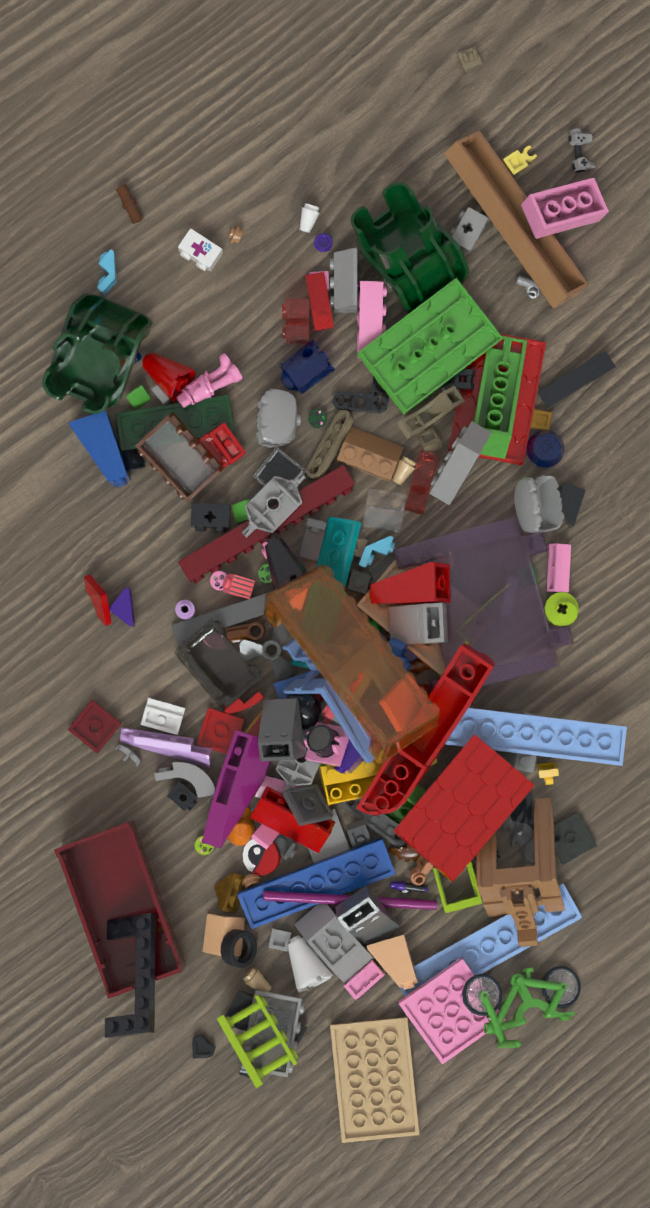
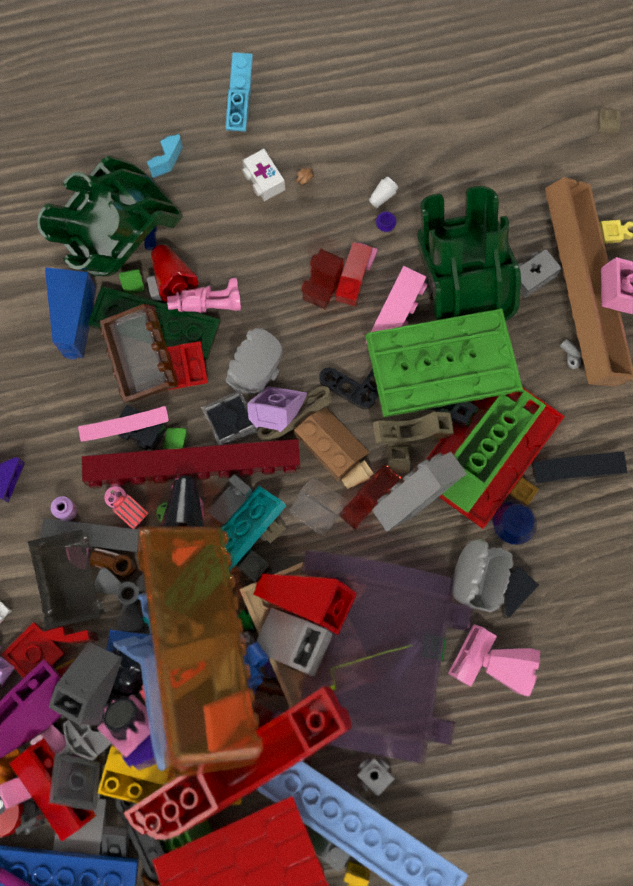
camera: 25 degrees right, 10 degrees down
(129, 204) = (219, 106): reddish brown pin -> none
(133, 460) = (93, 339): black plate -> none
(141, 184) = (239, 92): none -> medium azure slope
(198, 520) = (123, 424): none -> bright pink sticker
(267, 519) = (223, 446): light grey plate -> none
(305, 368) = (307, 327): clear blue cylinder -> none
(313, 447) = (275, 407): none -> lavender slope
(317, 418) = (296, 382): dark green tile -> none
(344, 281) = (389, 264): light grey slope -> none
(381, 547) = (296, 542): medium azure slope -> none
(533, 692) = (376, 784): none -> light grey brick
(571, 611) = (464, 708): lime piece -> none
(594, 563) = (513, 668): none -> bright pink cone

